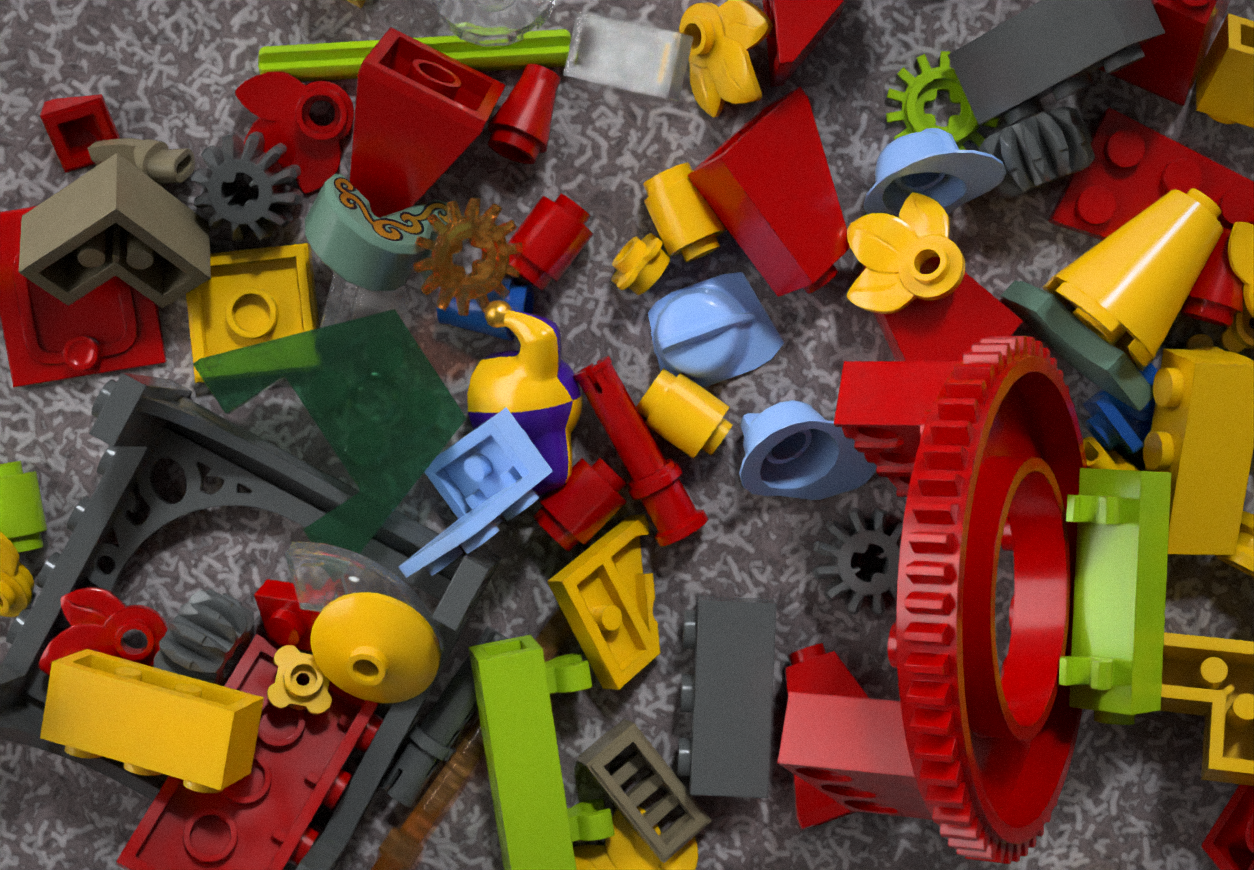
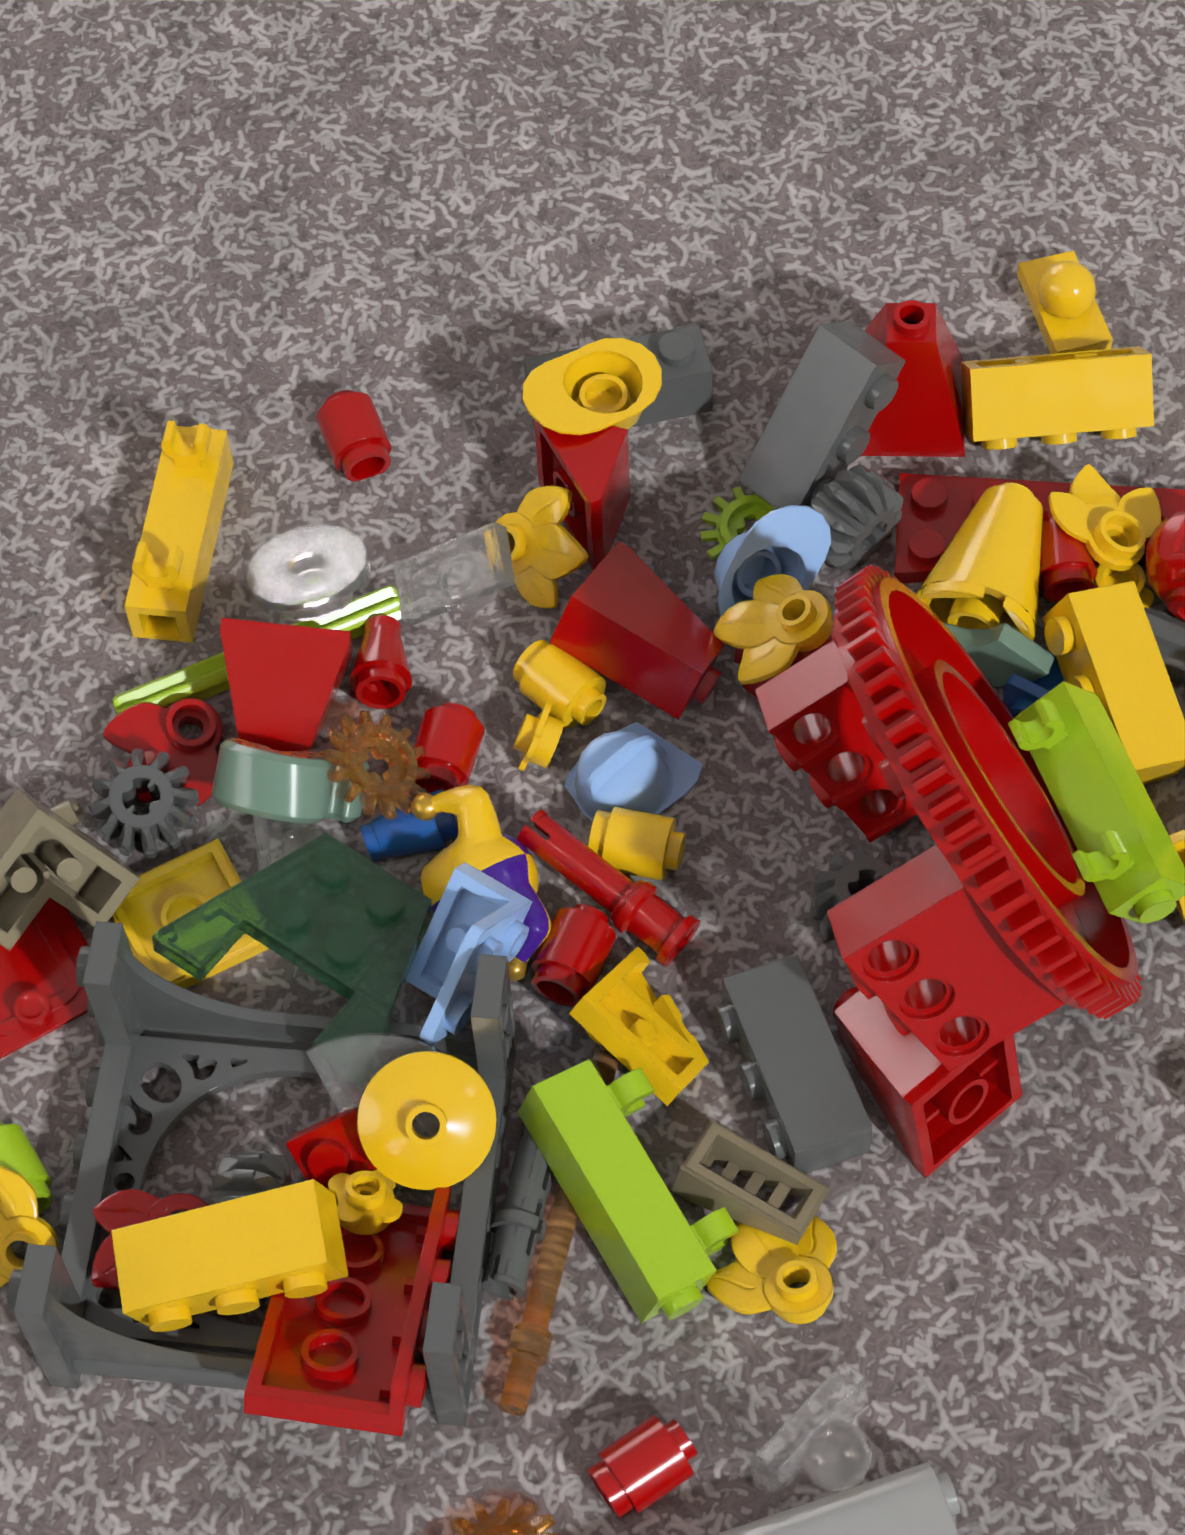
camera: 20 degrees left, 30 degrees down
(799, 454) = (773, 826): light blue piece -> none

